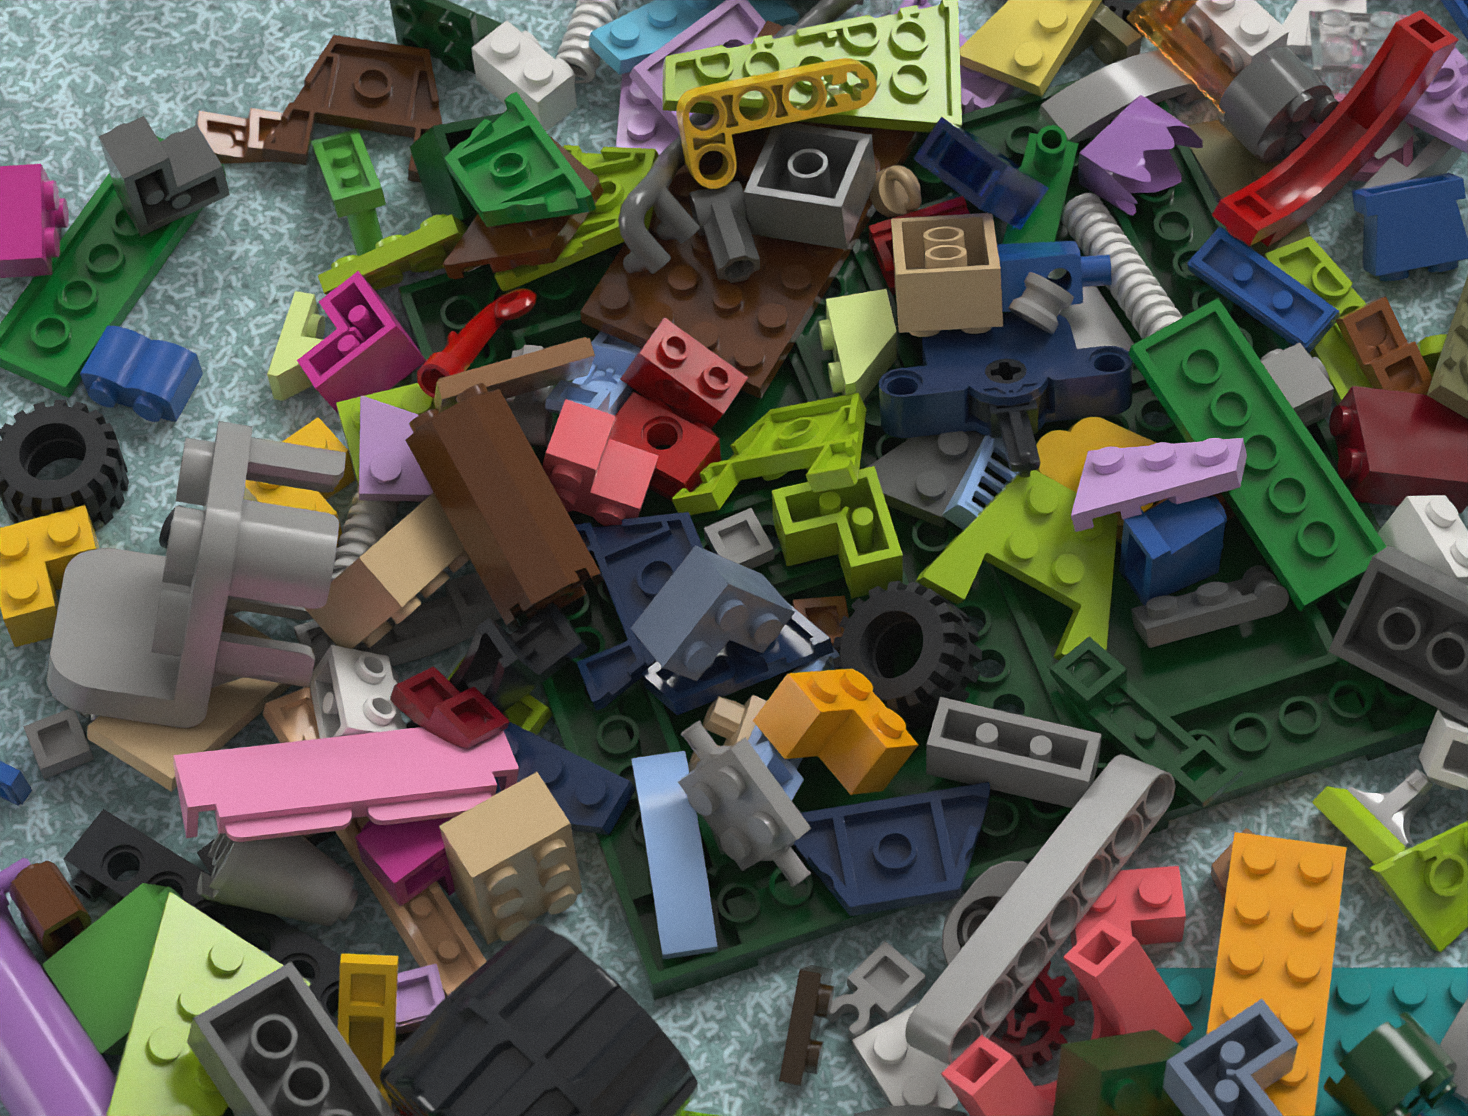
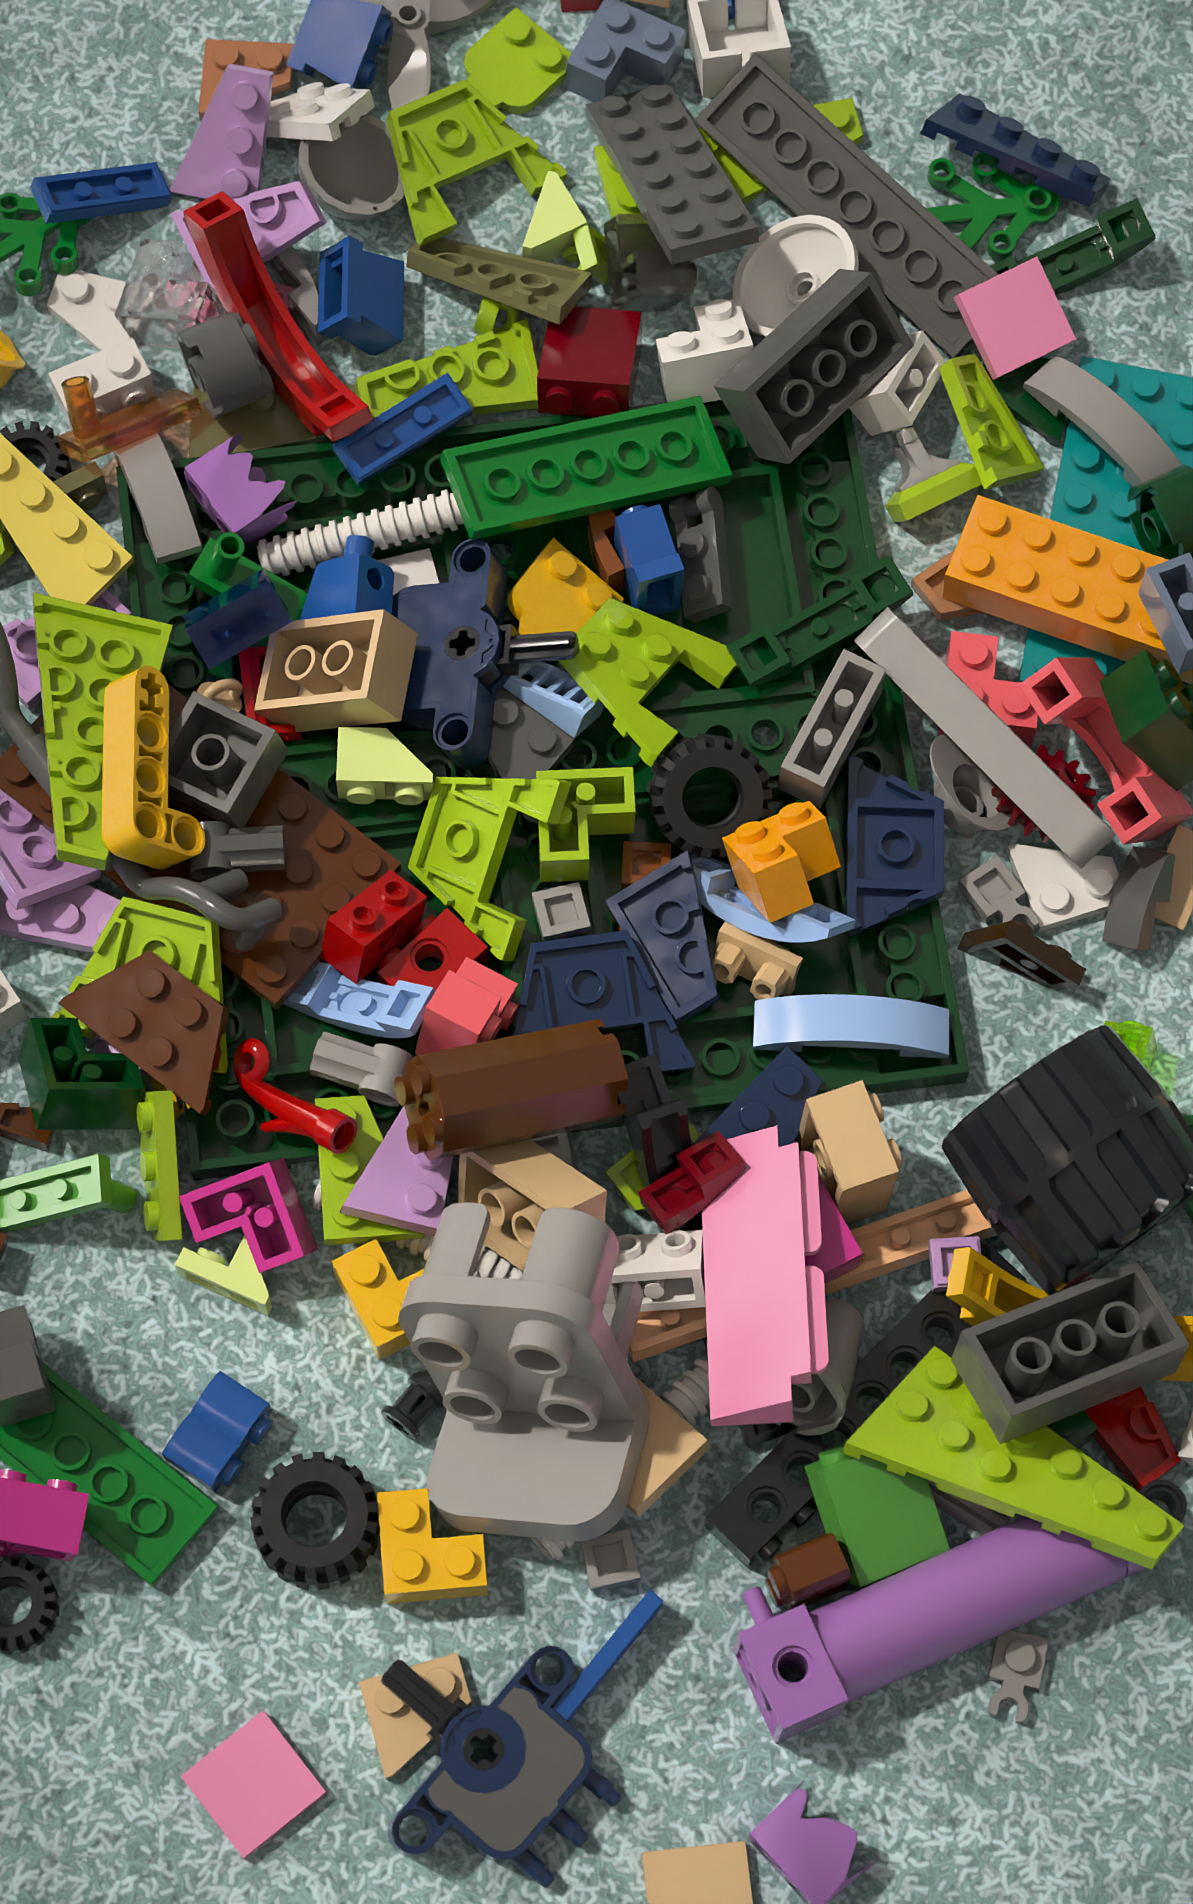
camera: 85 degrees left, 10 degrees up
(516, 170) = (128, 1018): green wing -> none
(521, 373) = (378, 1055): medium nougat tile -> none
(705, 608) = (656, 928): sand blue brick -> none
(744, 804) = (848, 946): light grey plate -> none
(1041, 302) = (402, 595): light grey wheel -> none
(1135, 476) = (600, 557): lavender wing -> none
(1301, 381) = (512, 416): light grey brick -> none
(1383, 349) = (491, 354): dark orange slope -> none

